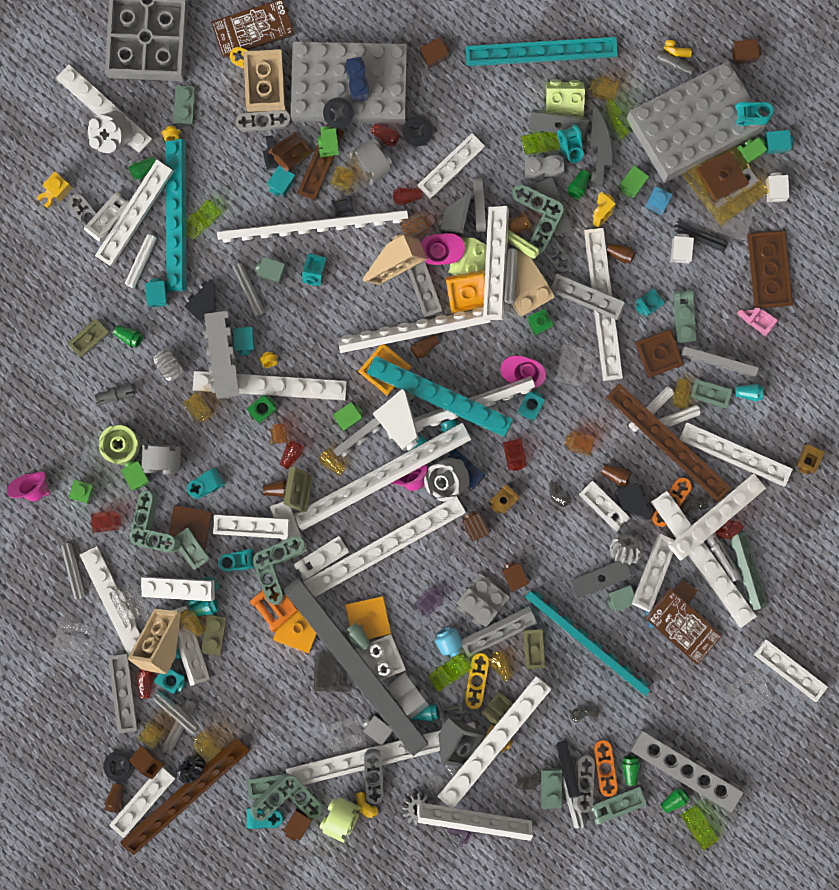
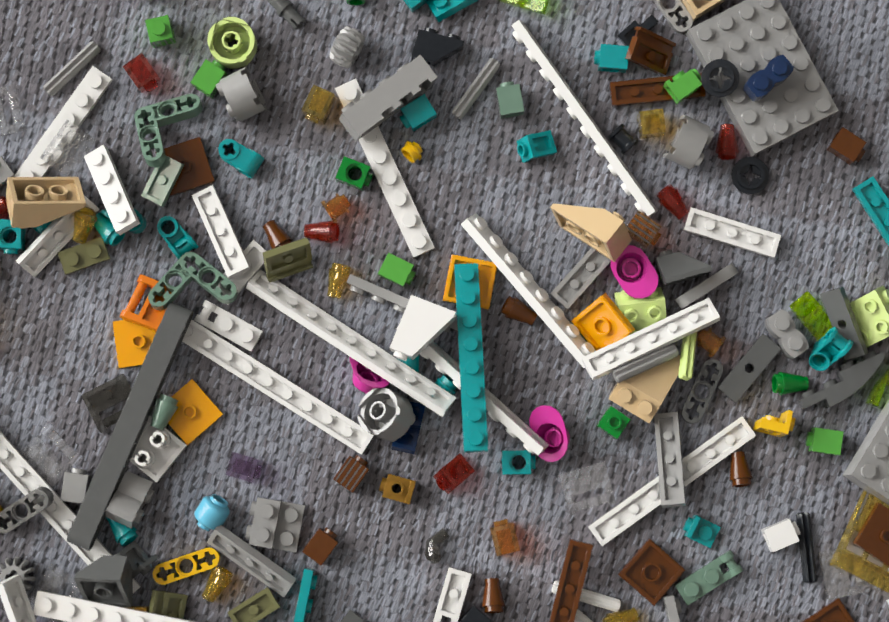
camera: 60 degrees right, 0 degrees up
(450, 672) = (179, 531): clear neon green slope -> none
(547, 216) = (732, 366): sand green beam -> none
(658, 200) = (820, 480): dark azure brick -> none

